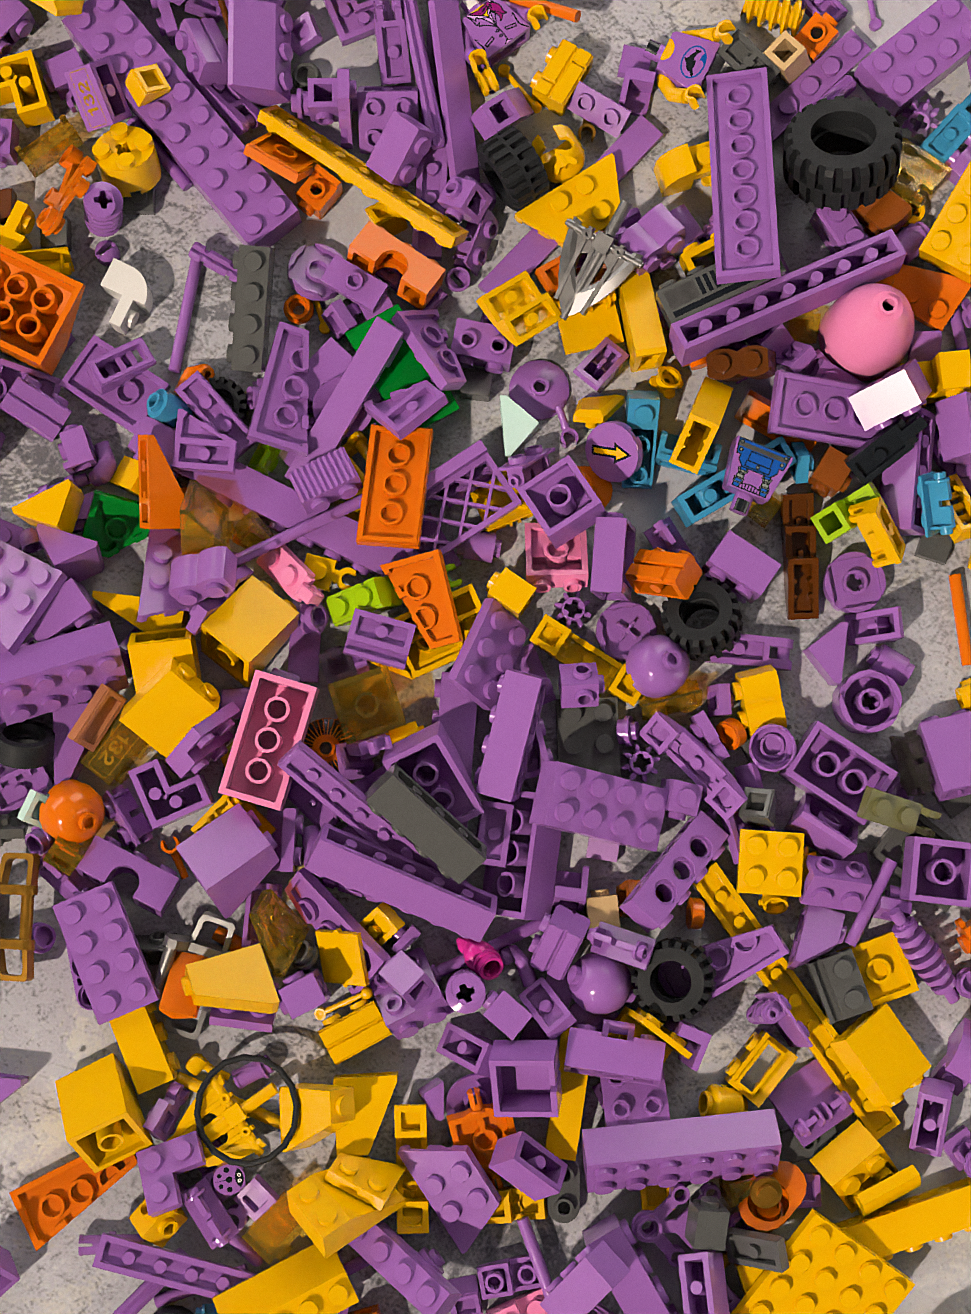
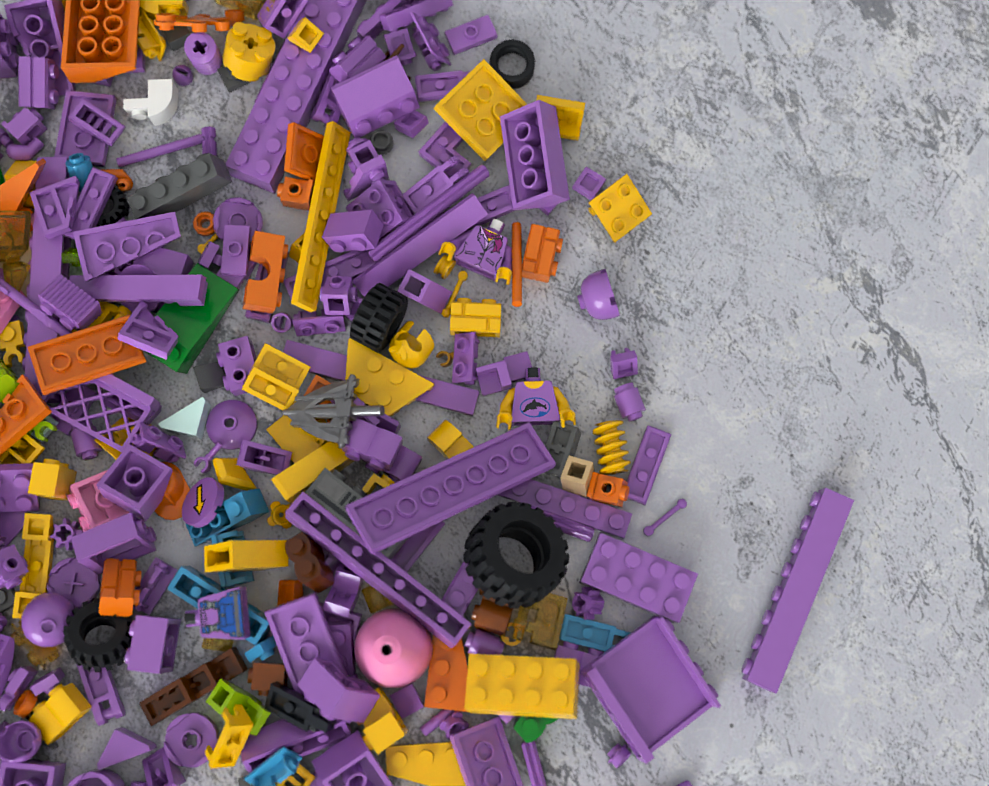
camera: 65 degrees right, 5 degrees down
(430, 347) = (210, 325): medium lavender wing -> none

